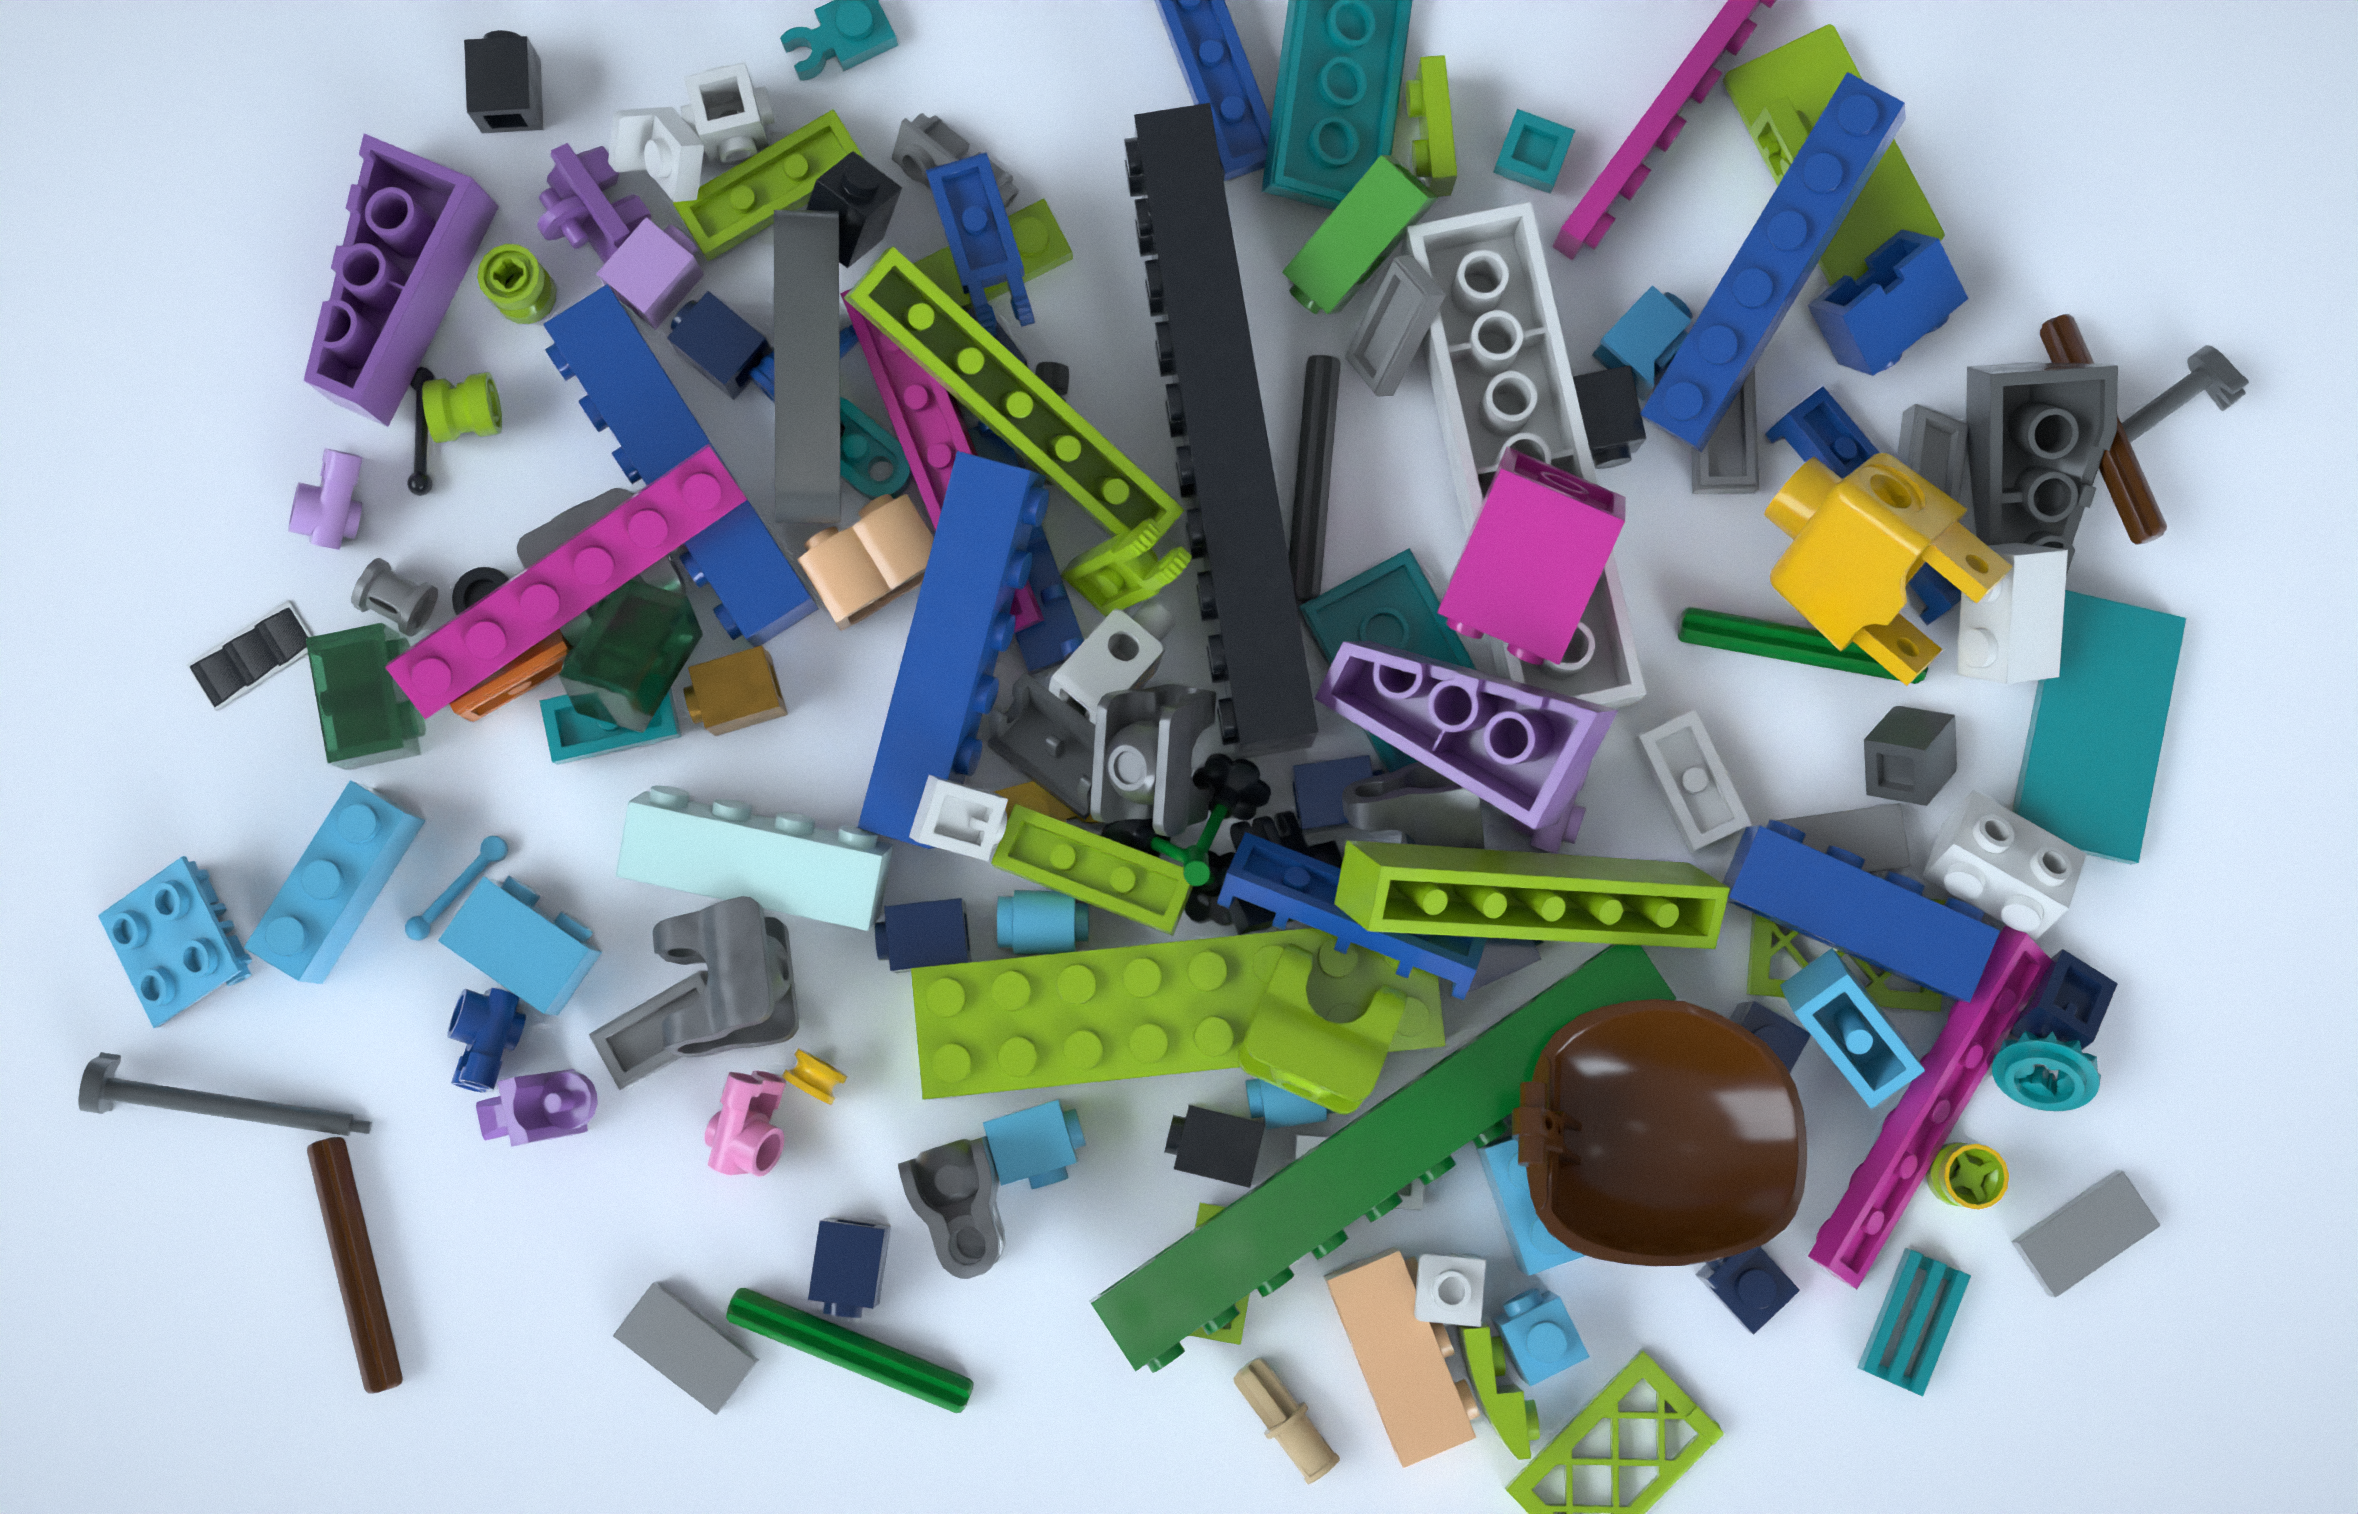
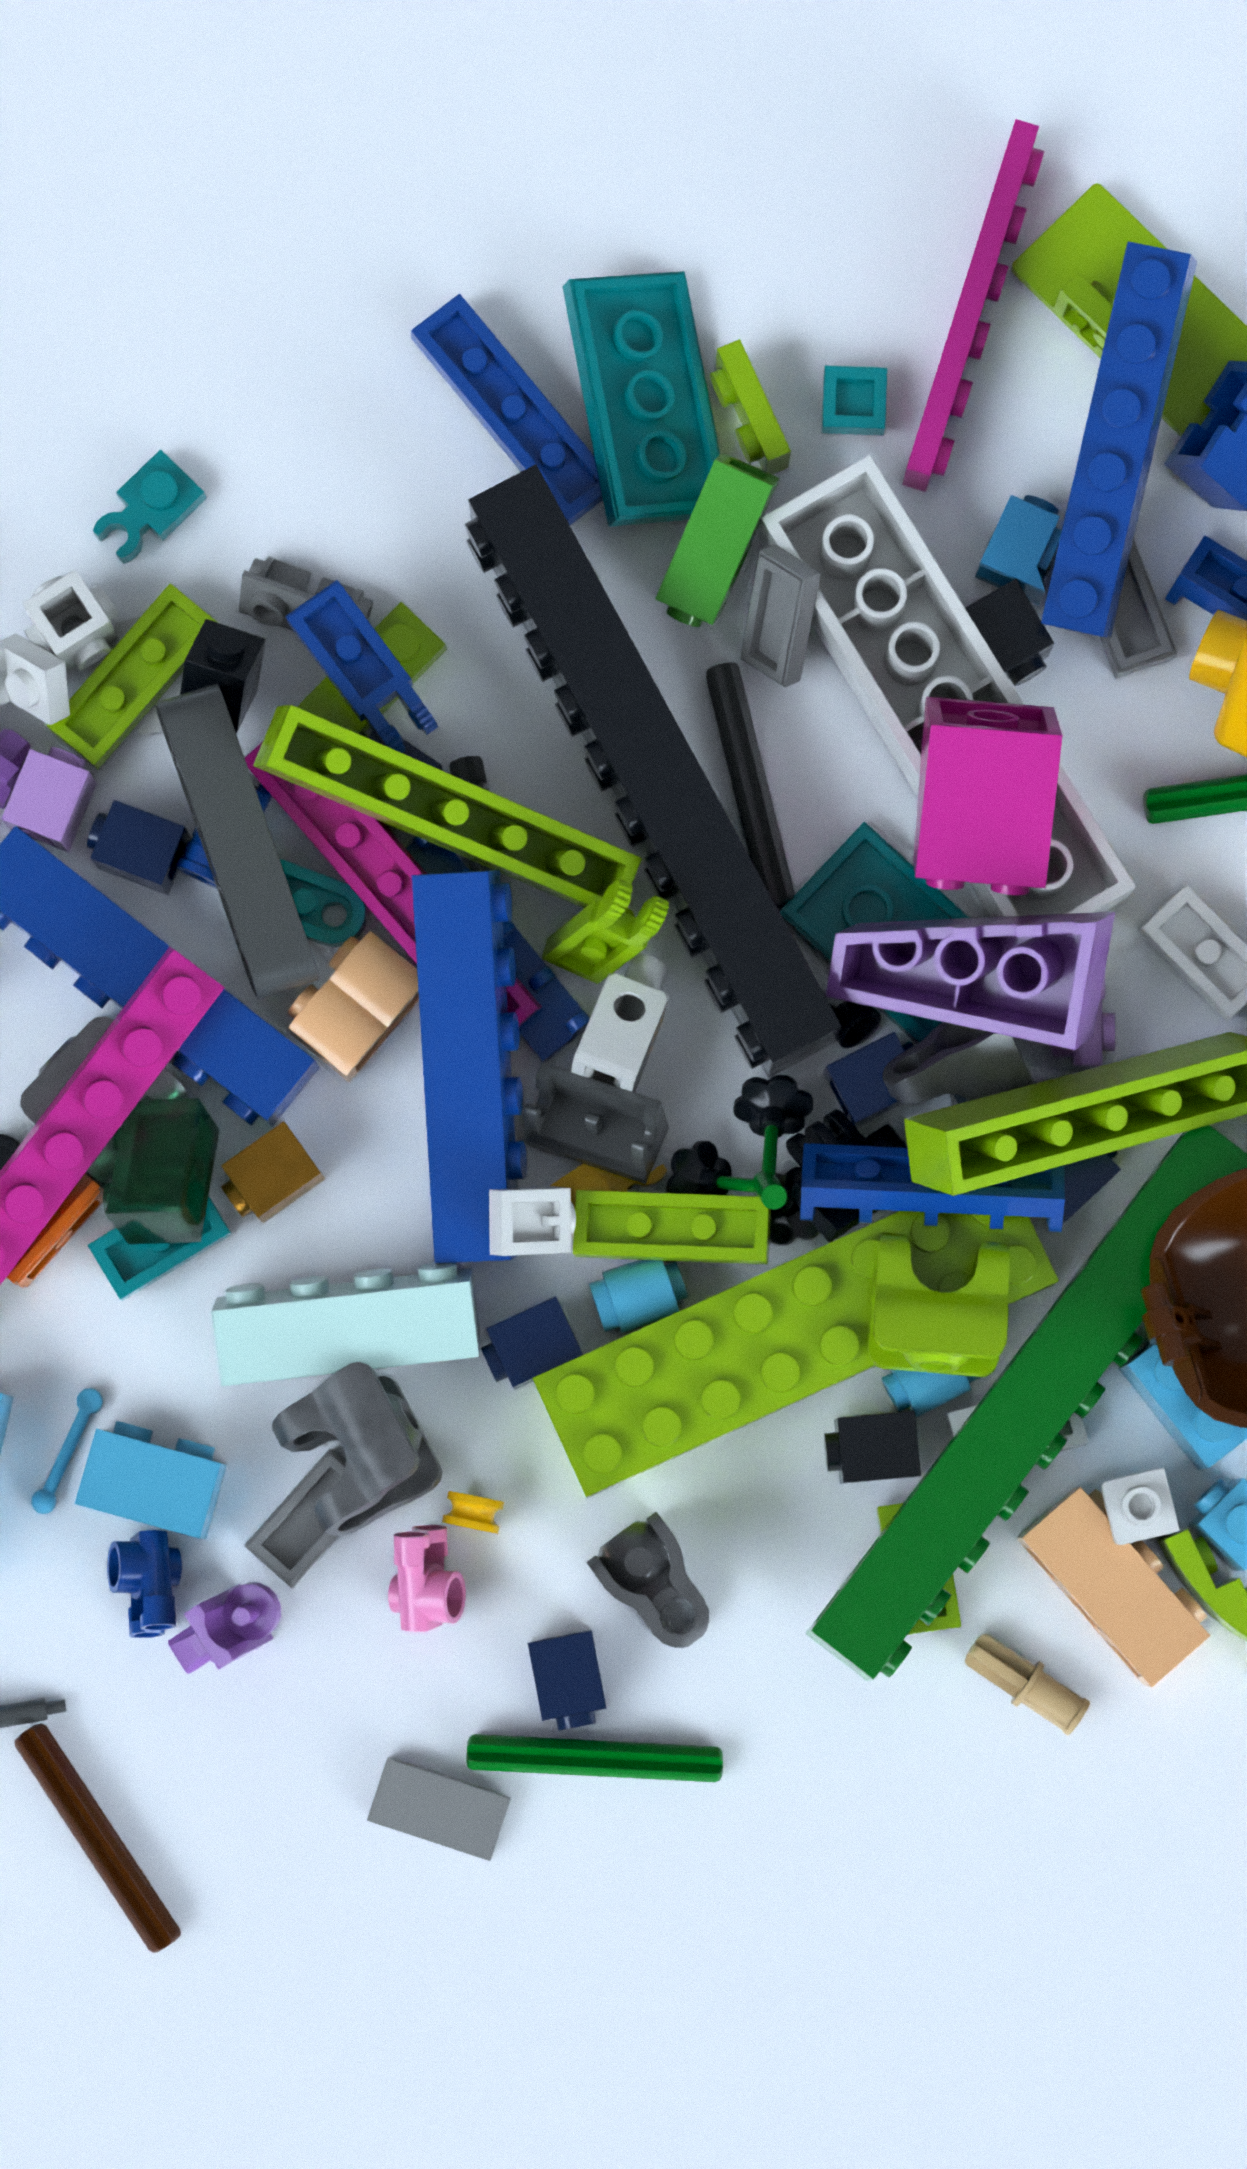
camera: 15 degrees left, 0 degrees up
(1035, 1144) = (704, 1504): medium azure brick -> none
(1146, 756) = (688, 1101): flat silver piece -> none
(1335, 735) = (857, 1023): none -> black hinge

